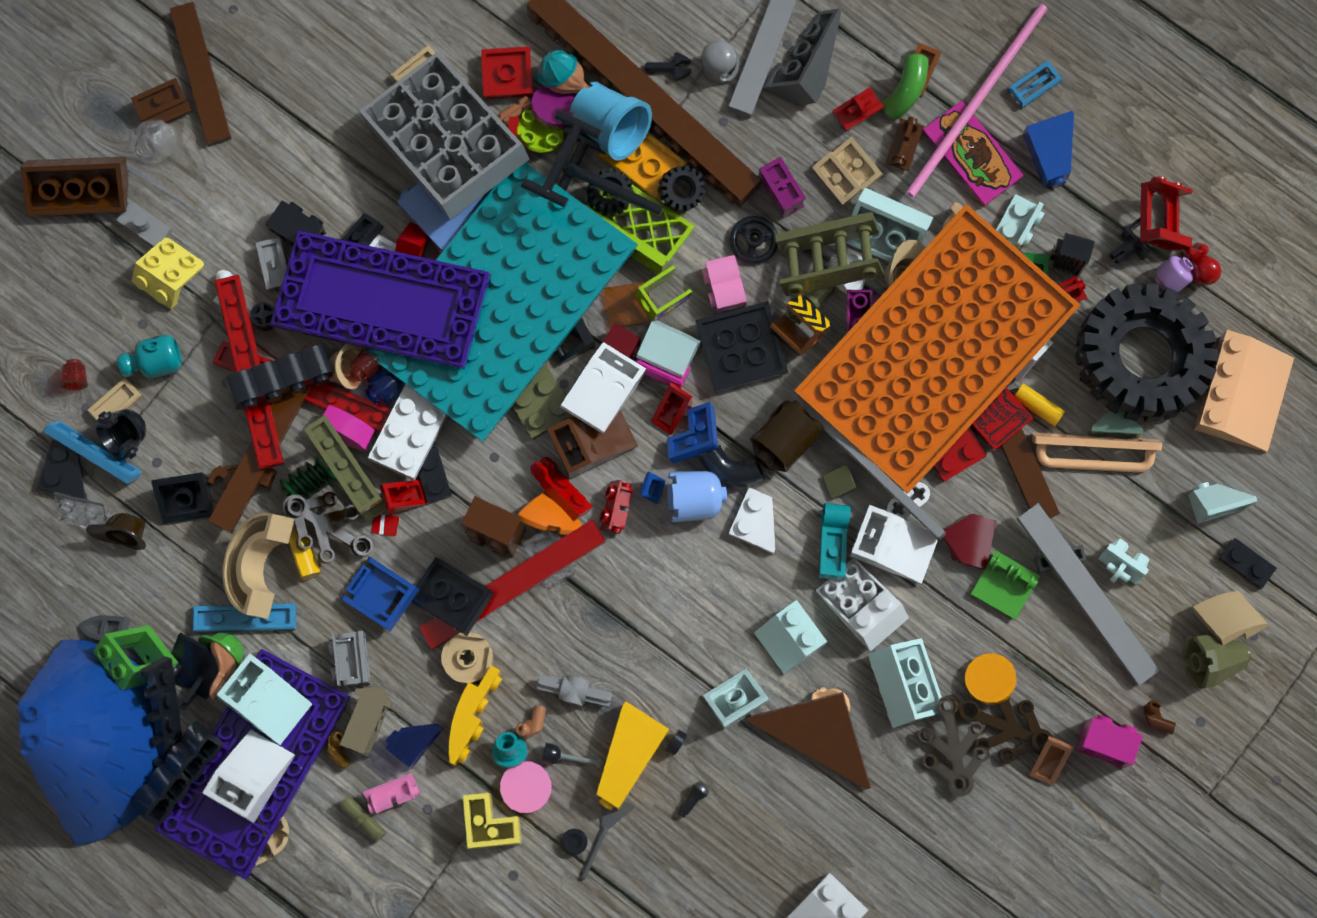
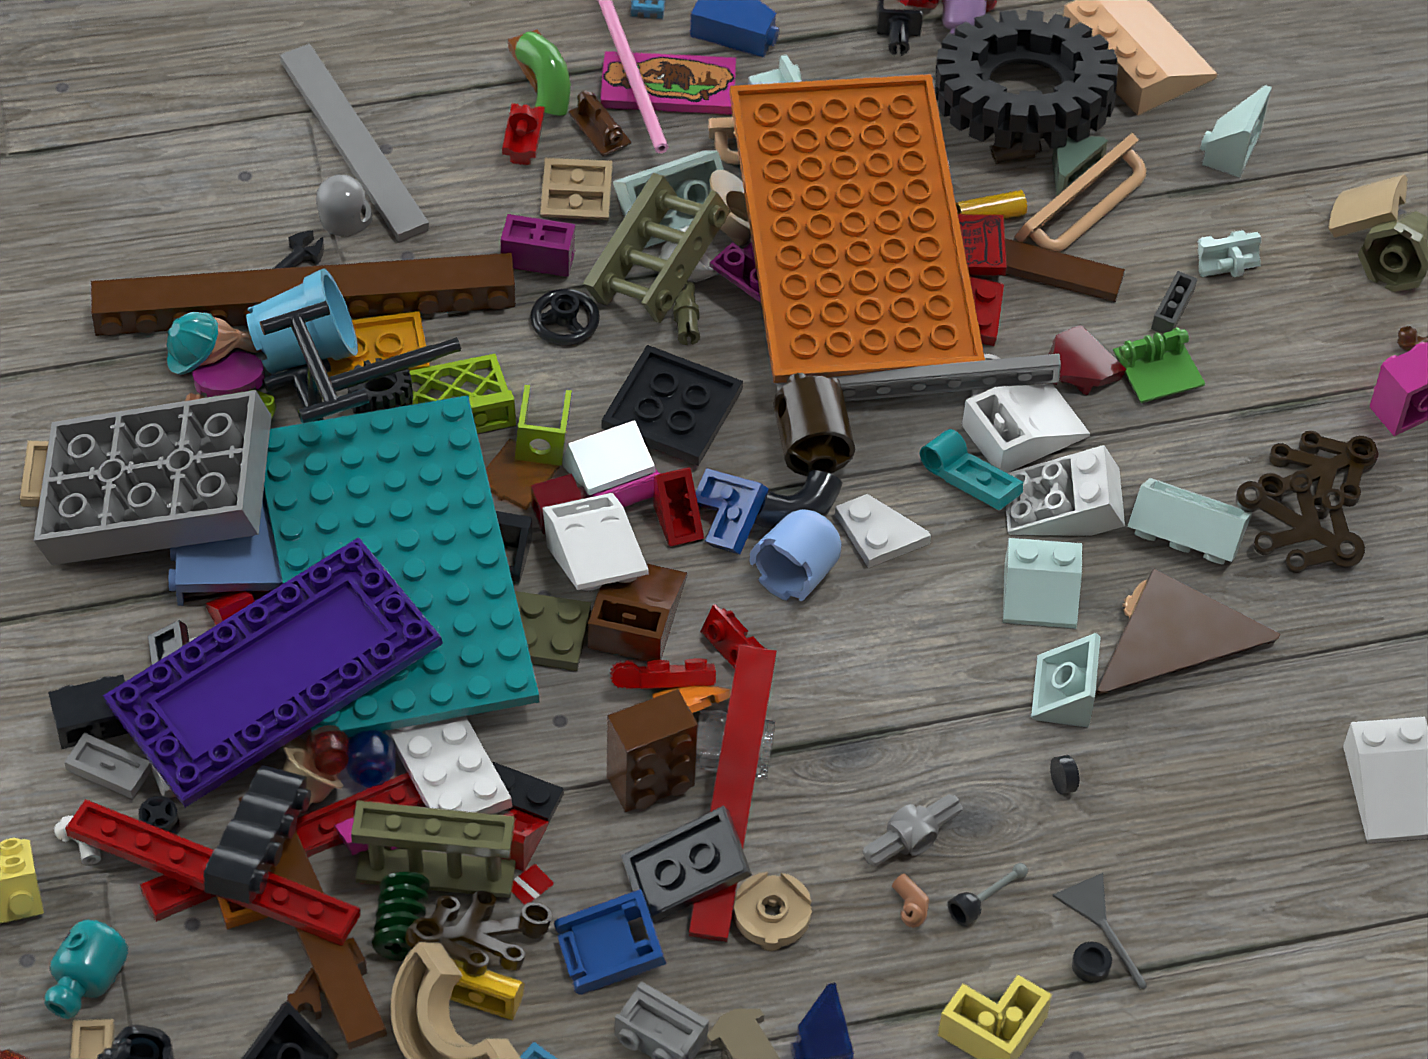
camera: 55 degrees left, 25 degrees down
(465, 725) = (847, 960): yellow slope -> none
(506, 72) = (140, 384): red plate -> none
(509, 750) = (922, 944): teal piece -> none
(526, 787) = (983, 961): bright pink tile -> none
(630, 752) = (1038, 827): yellow slope -> none
(652, 487) = (745, 593): blue slope -> none
(693, 180) = (449, 317): black tyre -> none
(698, 792) = (1142, 796): black piece -> none
(725, 284) = (588, 368): bright pink brick -> none
(807, 67) = (427, 141): dark grey wedge -> none
(809, 316) = (732, 329): dark orange piece -> none
(839, 482) = (909, 424): olive slope -> none
(990, 679) = (1252, 445): light orange tile -> none
(1051, 760) = (1392, 450): nougat slope -> none
(1072, 253) = (863, 56): black brick -> none
(1087, 594) = (1235, 301): light grey tile -> none
(1247, 563) = (1320, 165): black plate -> none

